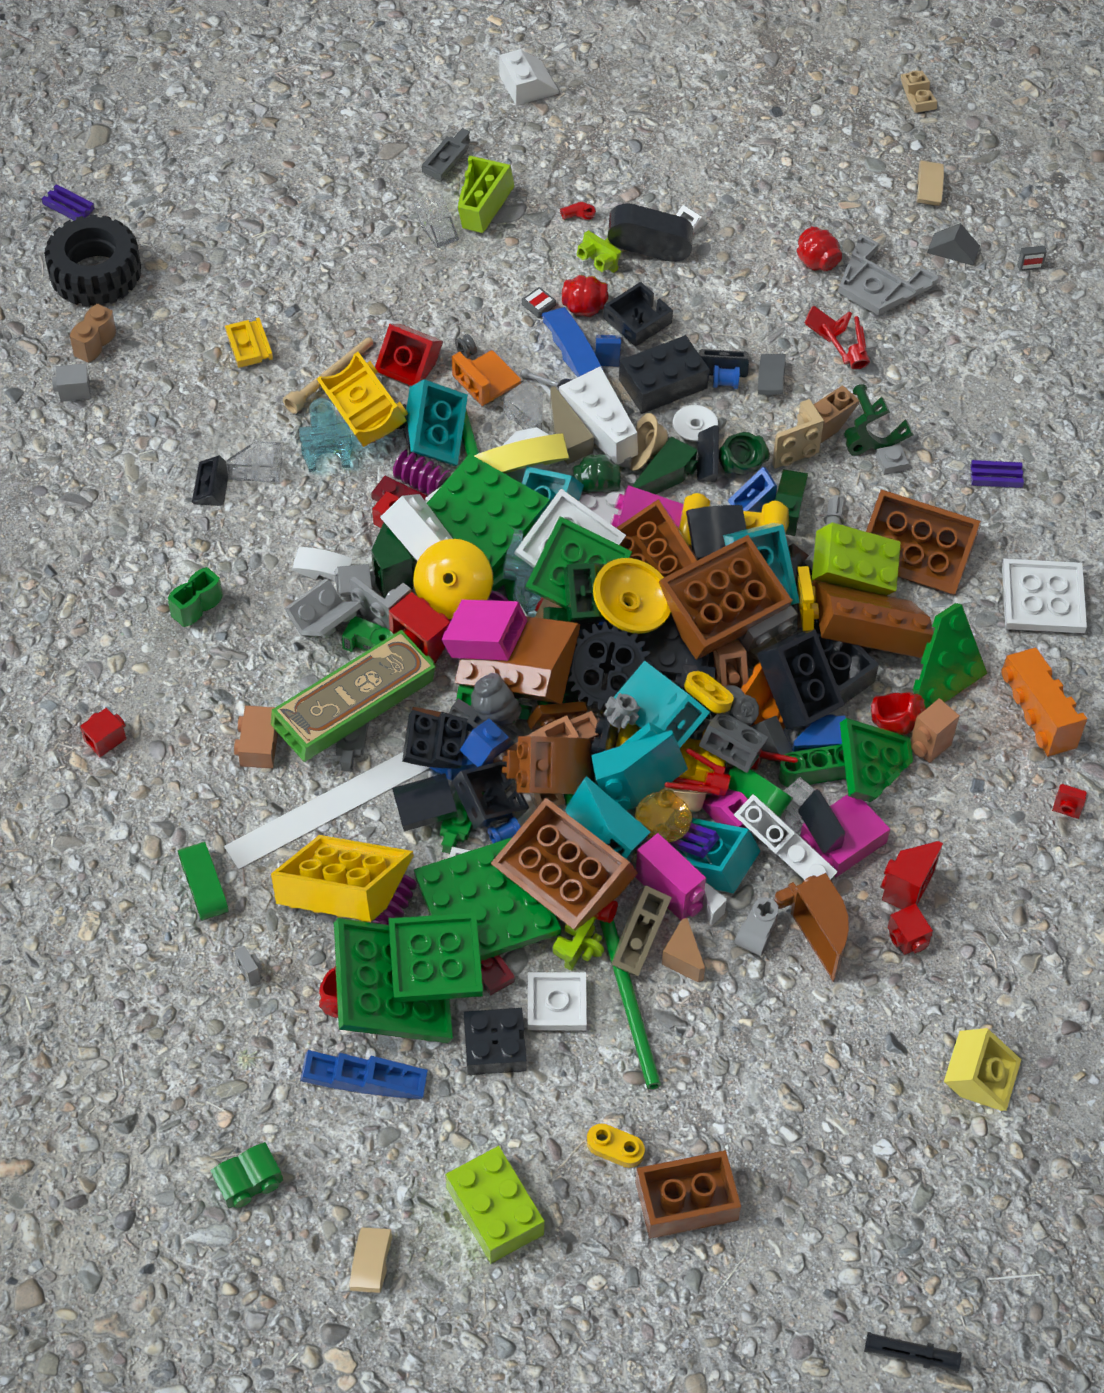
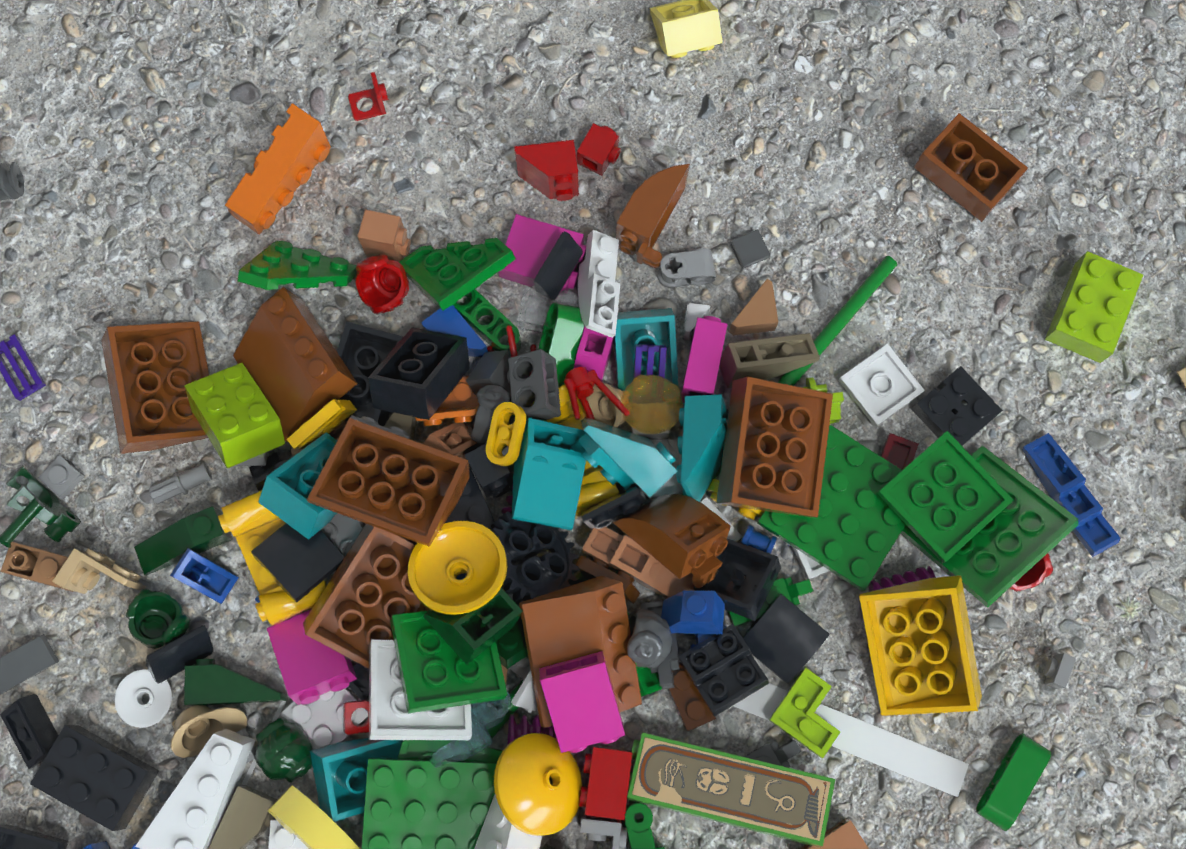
camera: 125 degrees left, 20 degrees up
(361, 777) = (797, 716): none -> lime plate
(613, 1147) = (962, 255): yellow plate -> none
(621, 710) = (585, 499): light grey gear -> none
(726, 377) = (55, 710): blue bush -> none
(742, 988) = (750, 249): none -> dark grey tile
(1044, 596) = (149, 240): white plate -> none

